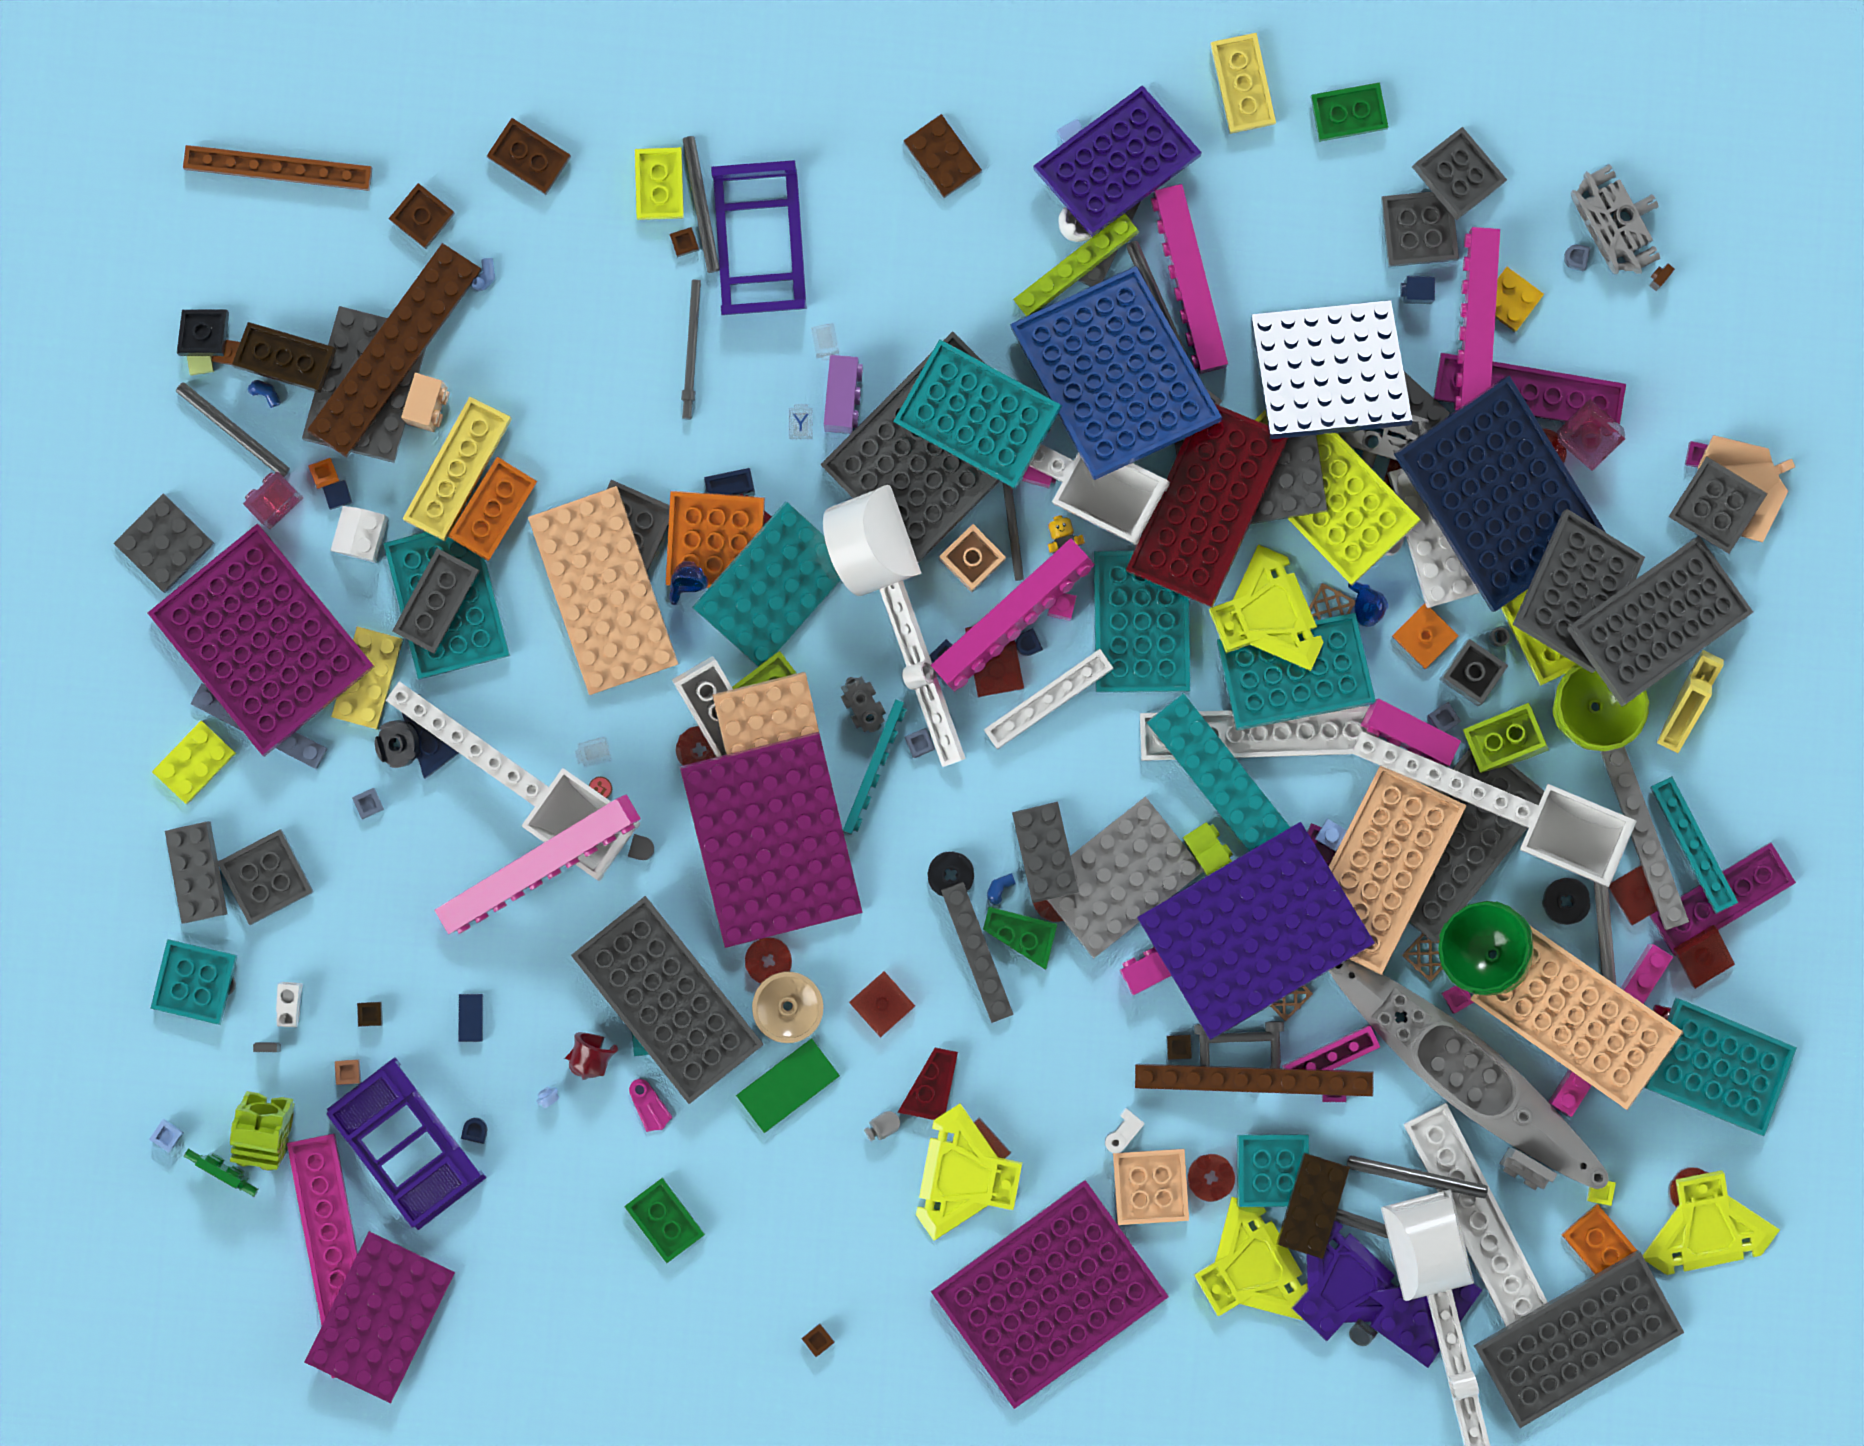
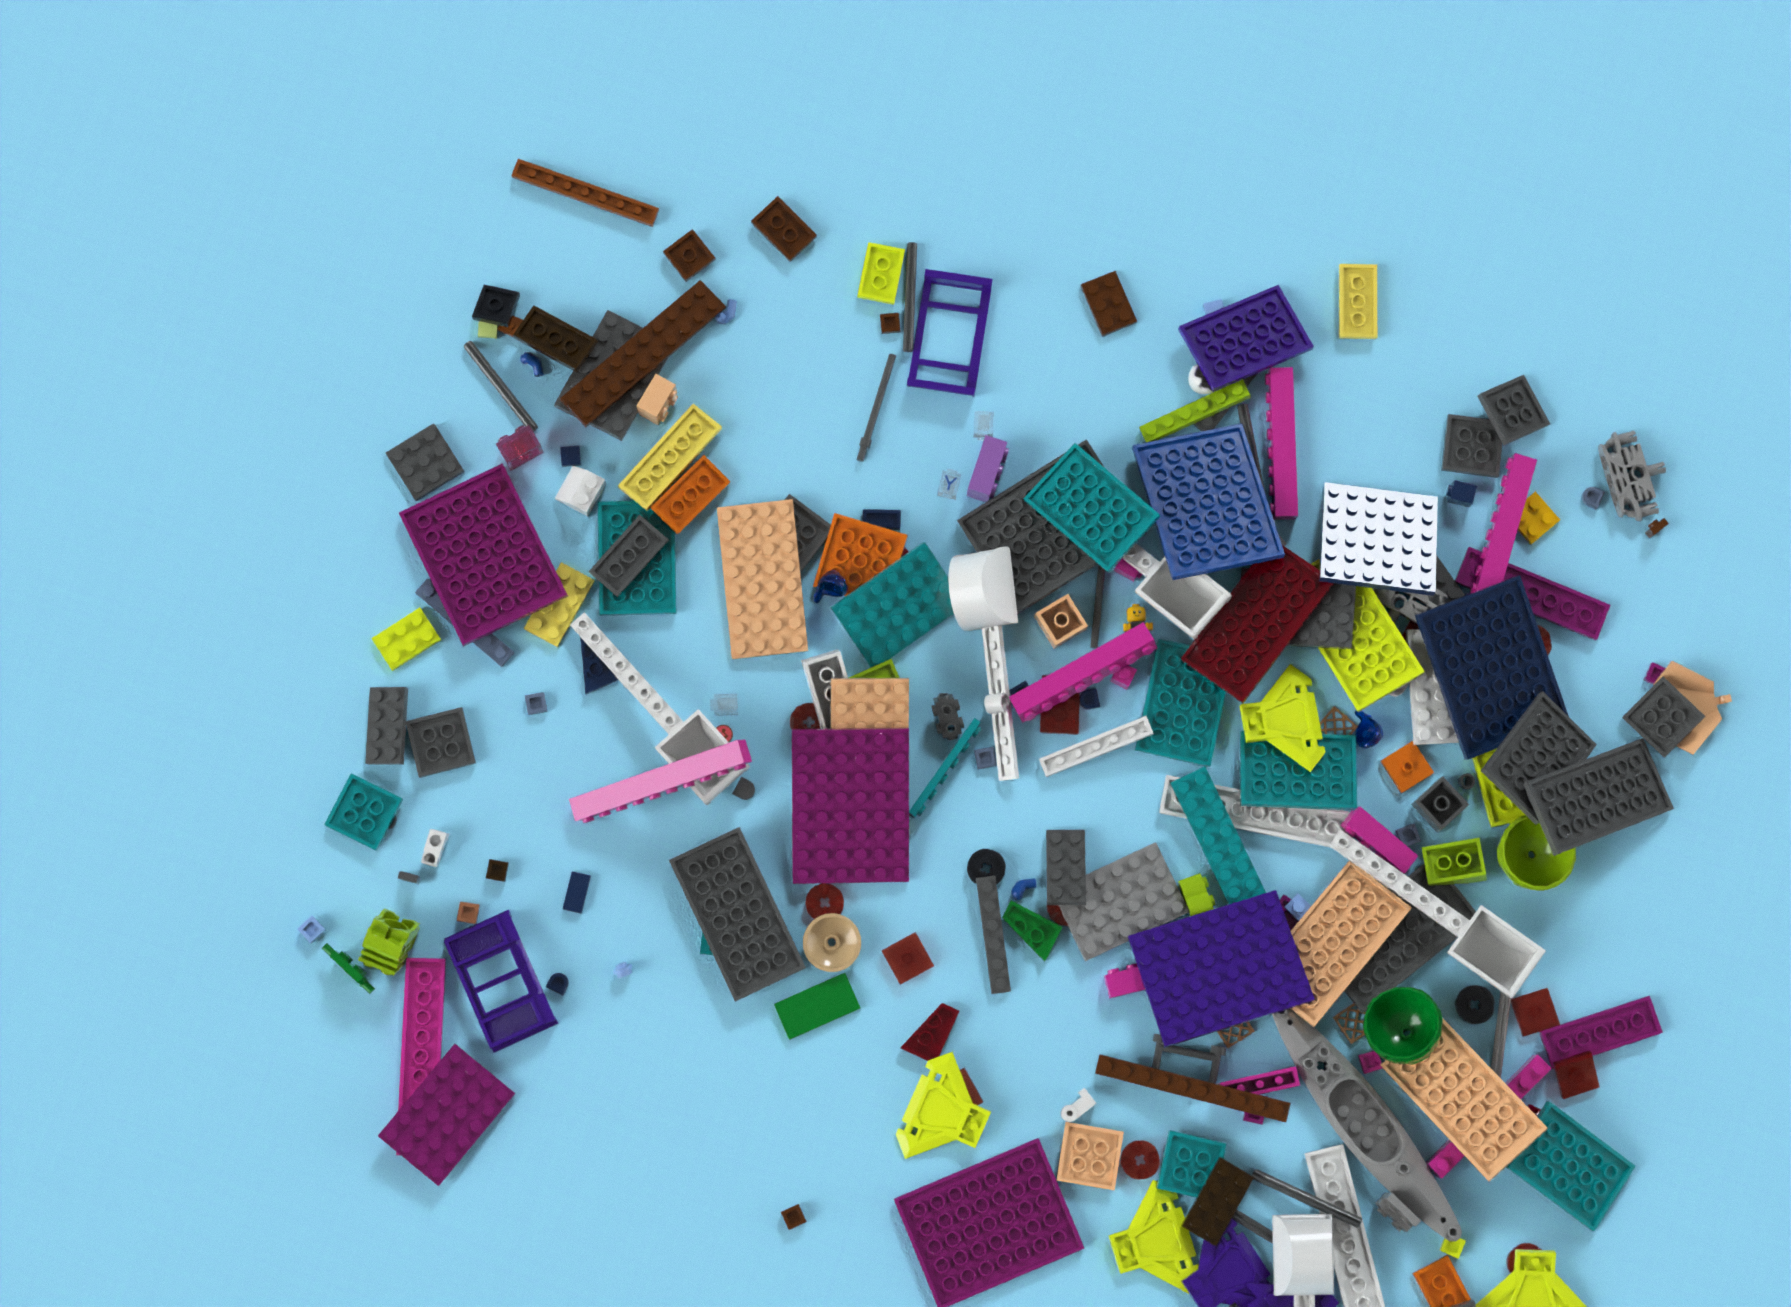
camera: 10 degrees right, 5 degrees down
(323, 473) = (564, 436): orange plate -> none
(408, 739) = (580, 665): black plate -> none
(587, 1058) = (663, 946): dark red helmet -> none
(649, 1106) = (702, 997): dark pink piece -> none
(664, 1220) = (693, 1091): green plate -> none
(883, 1126) = (885, 1056): light grey arm -> none
(1179, 1047) = (1137, 1049): dark brown tile -> none
(1349, 112) = (1436, 342): green plate -> none
(1591, 435) = (1574, 637): clear pink brick -> none
(1645, 838) = (1549, 968): light grey plate -> none
(1690, 701) = (1608, 867): light yellow slope -> none
(1694, 845) = (1587, 983): teal plate -> none

